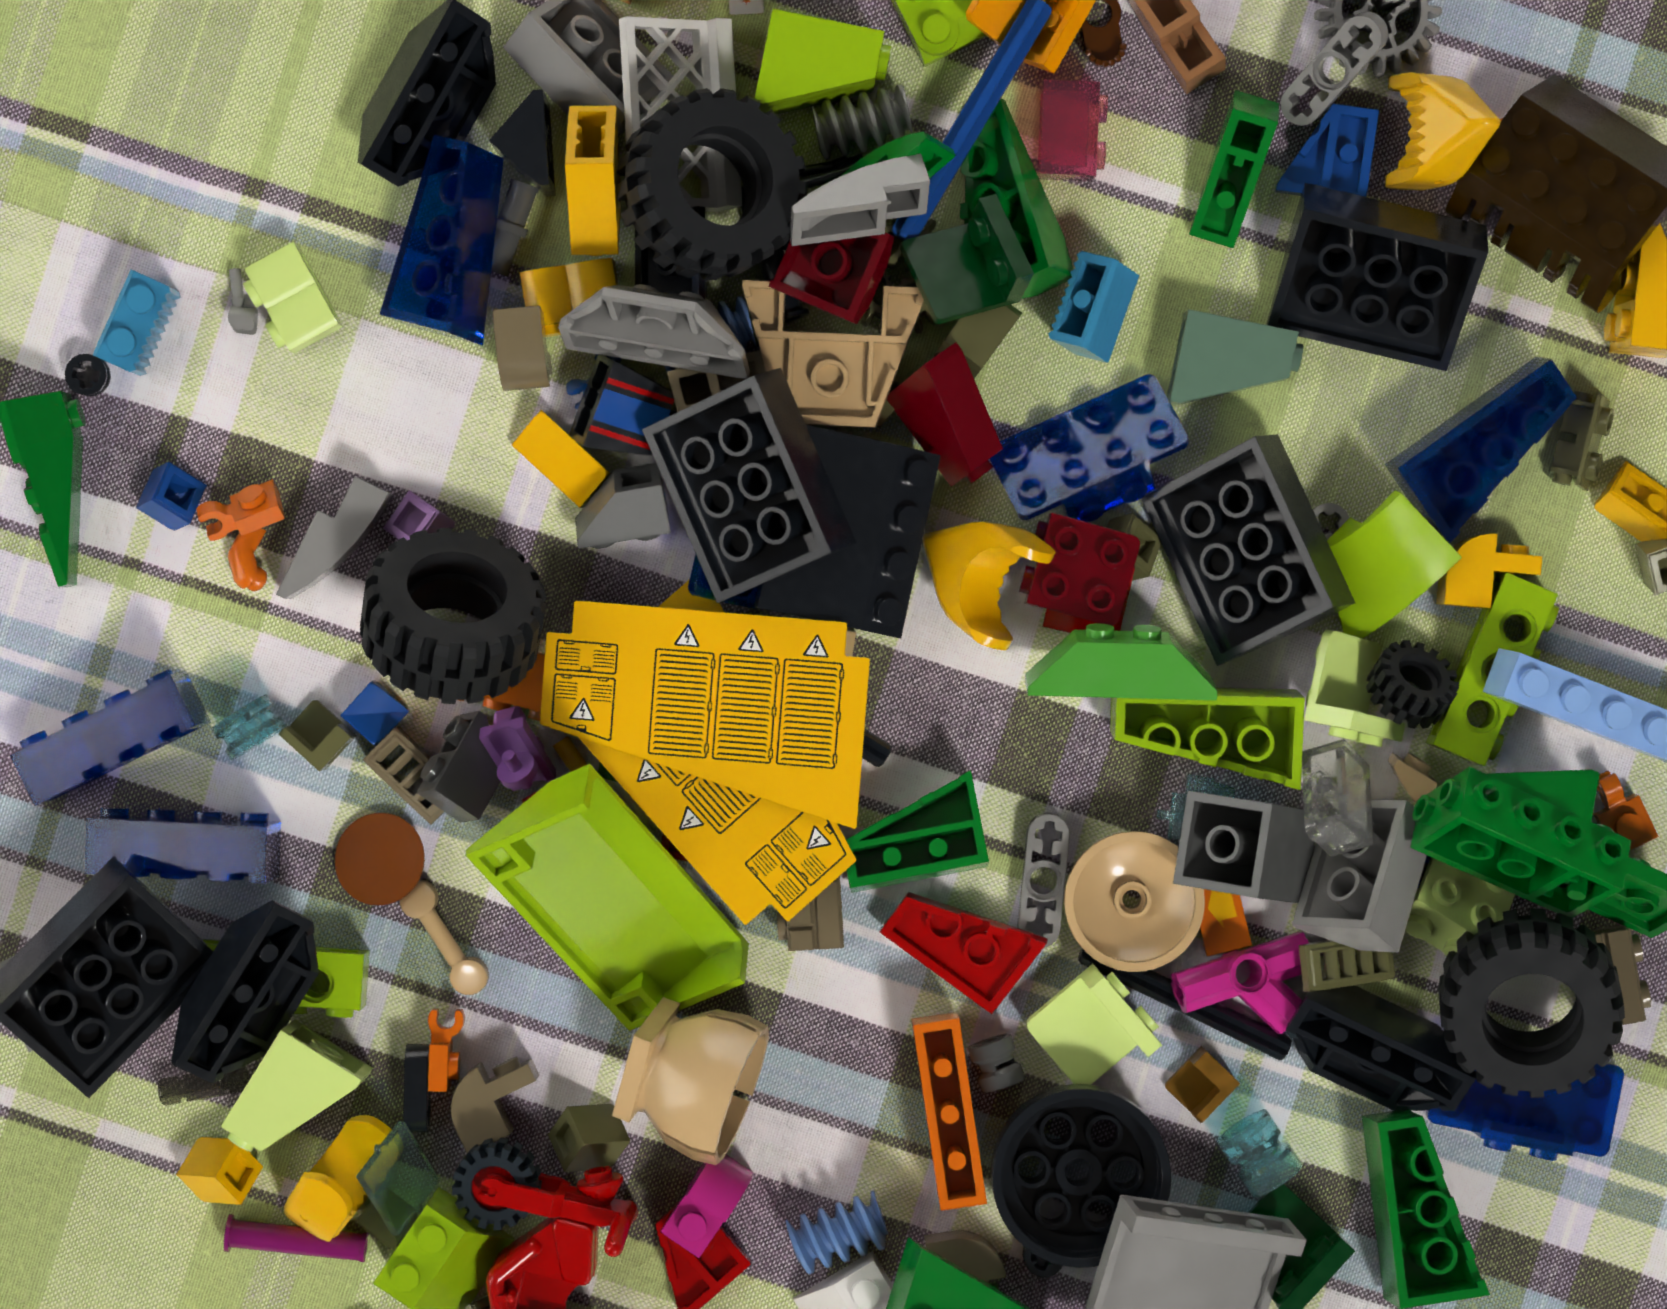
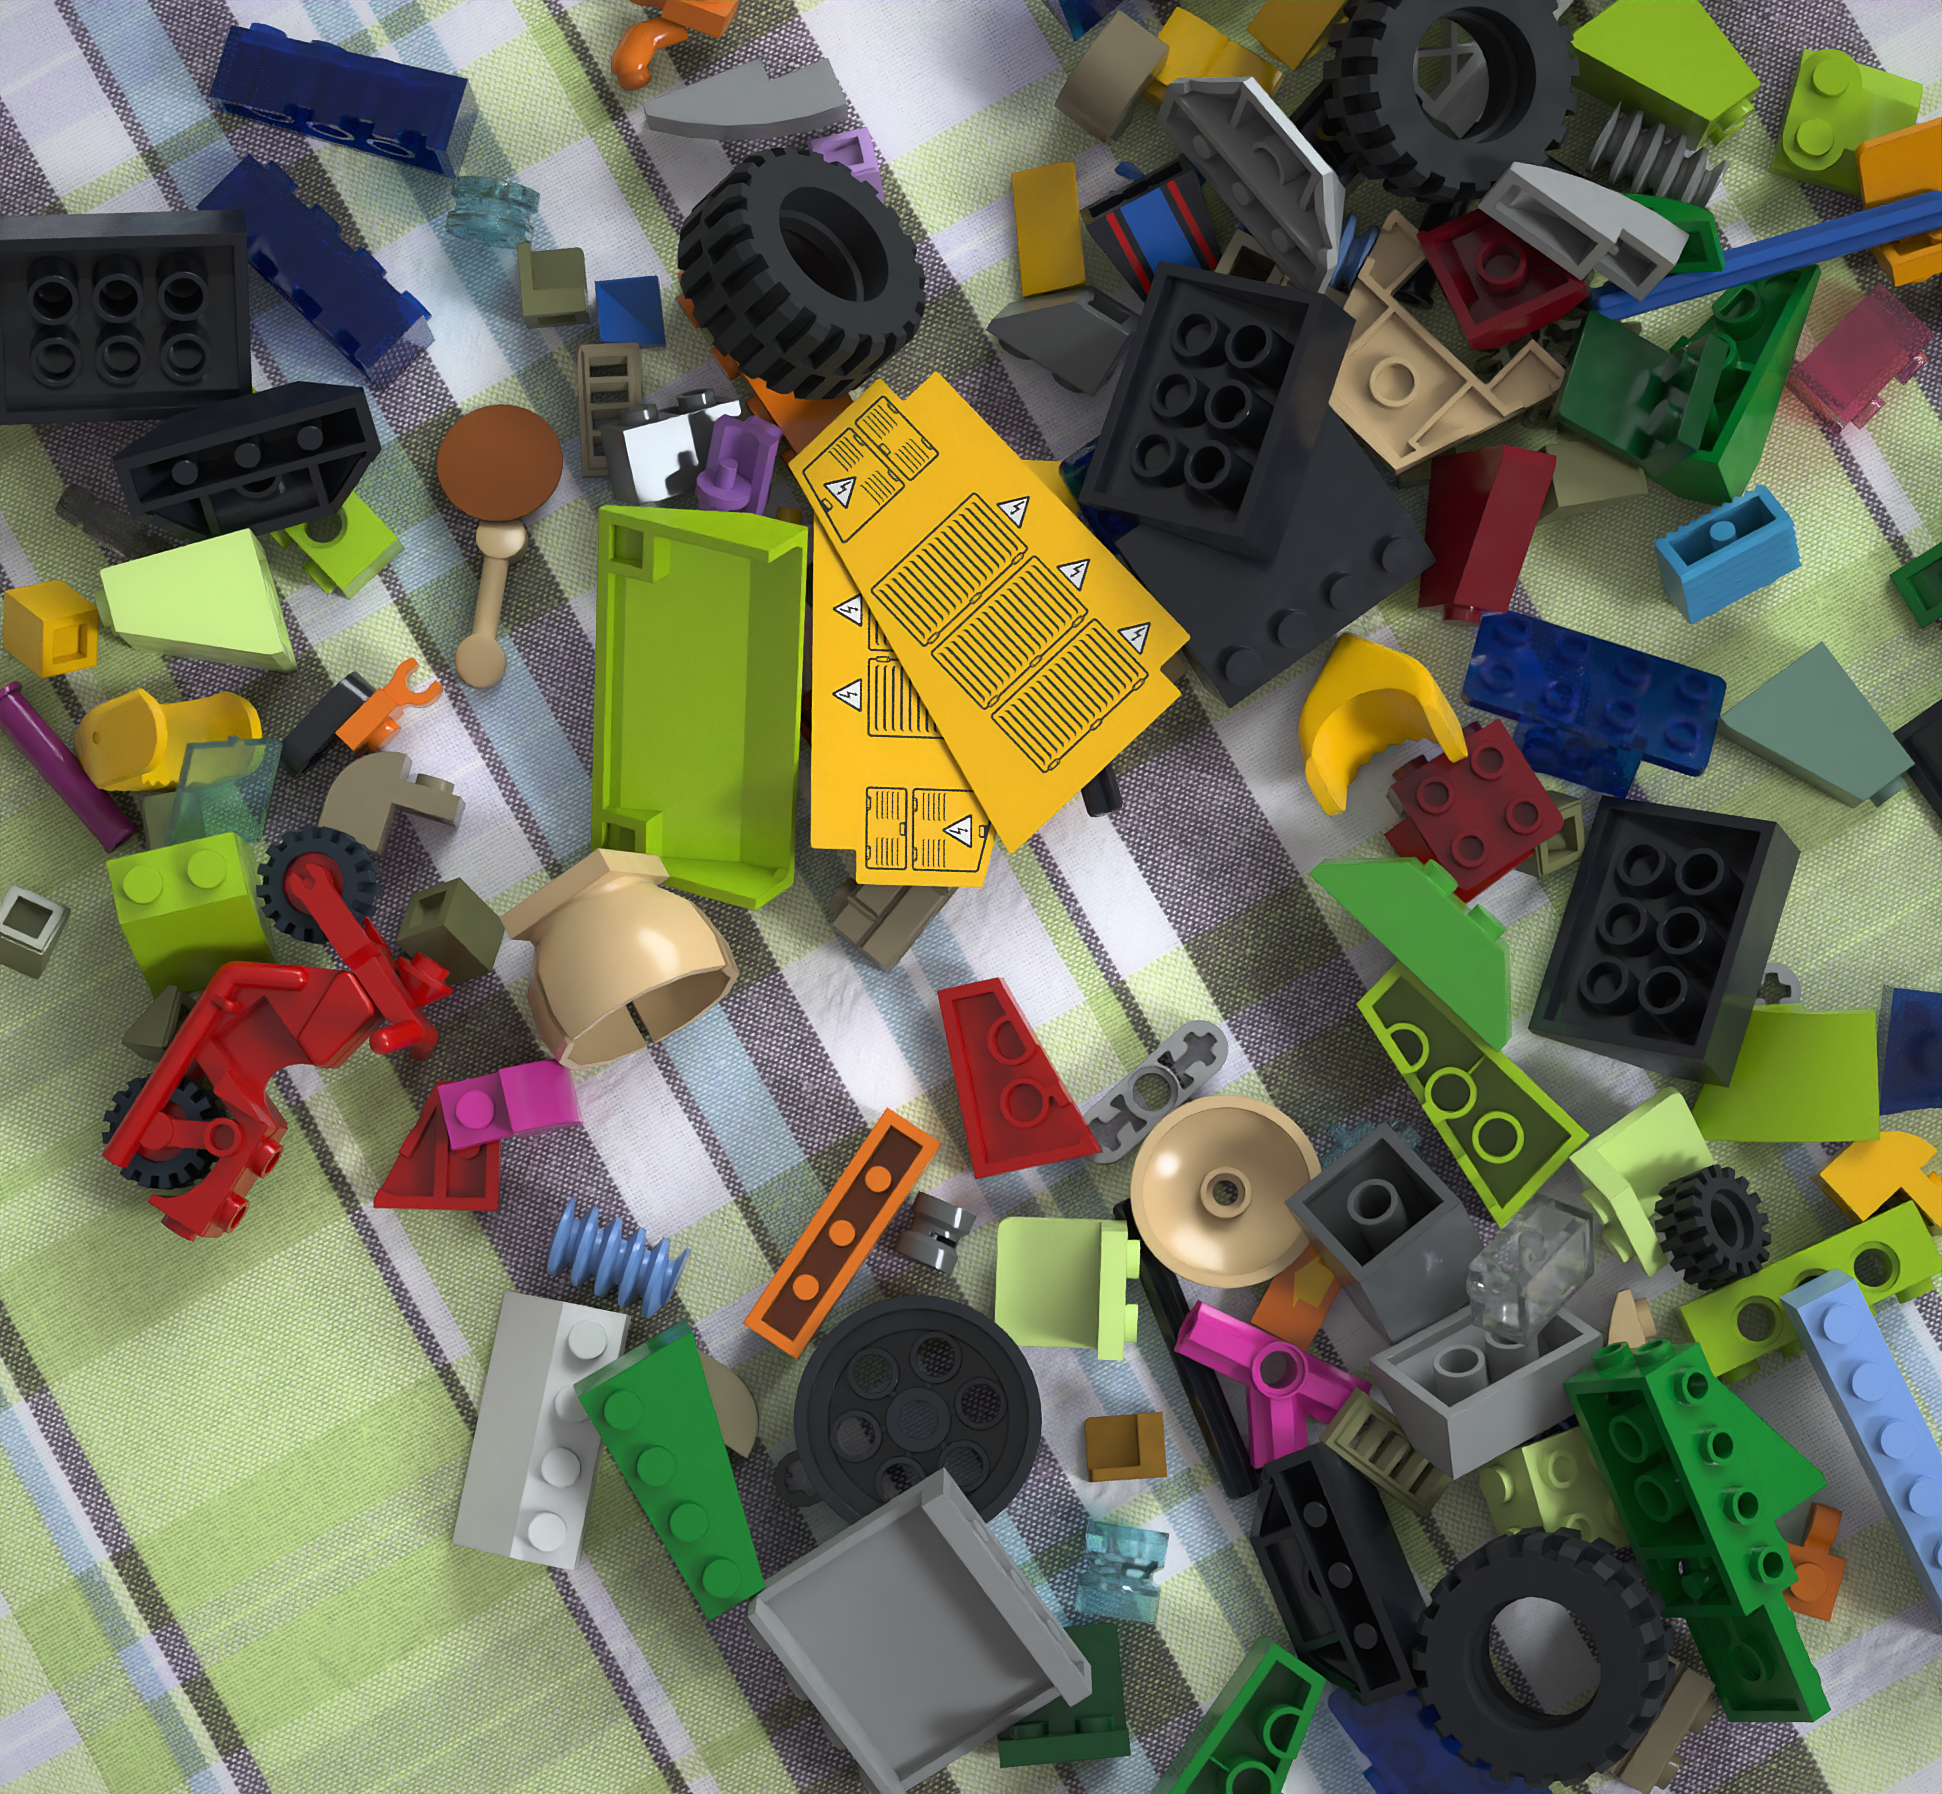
camera: 40 degrees right, 5 degrees down
(922, 841) = (1063, 933): green wedge -> none

